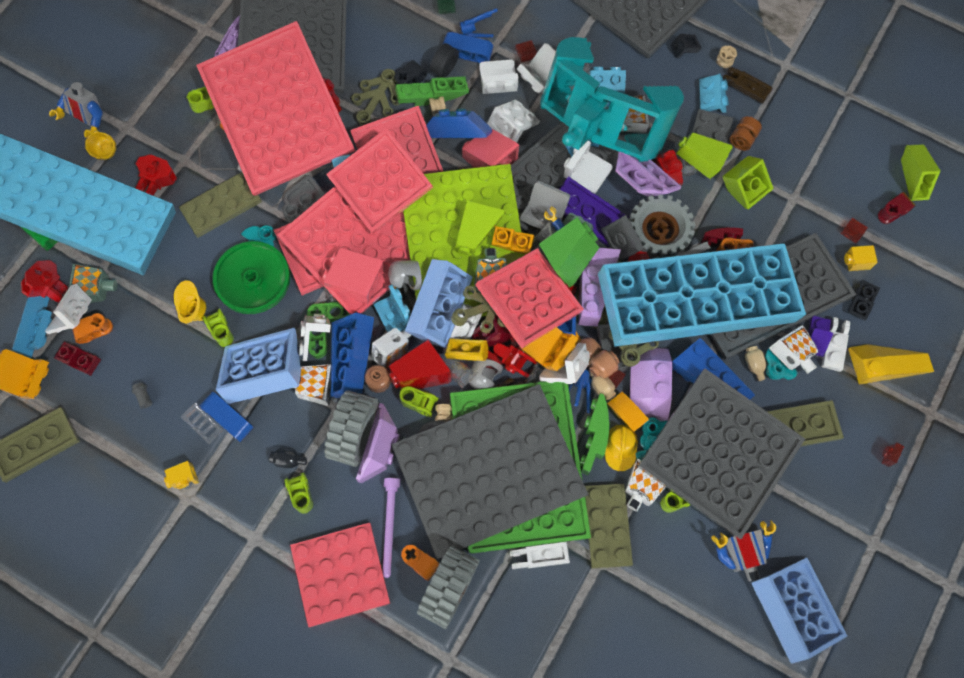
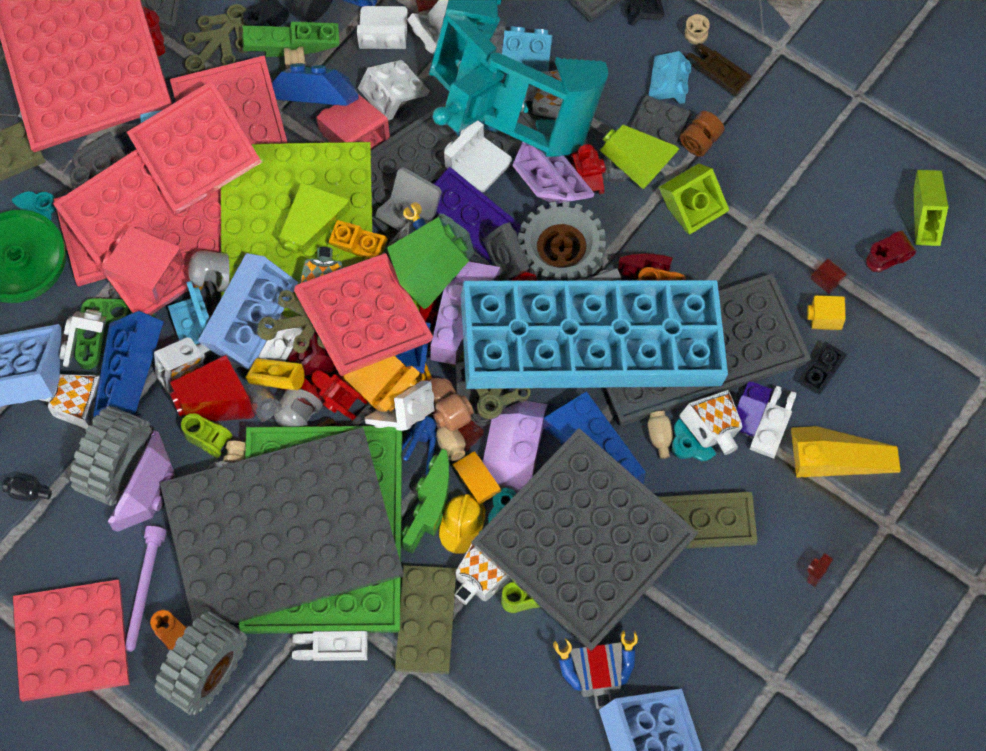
camera: 10 degrees right, 5 degrees down
(299, 489) = (34, 529): lime piece -> none
(377, 379) = (157, 401): nougat head -> none

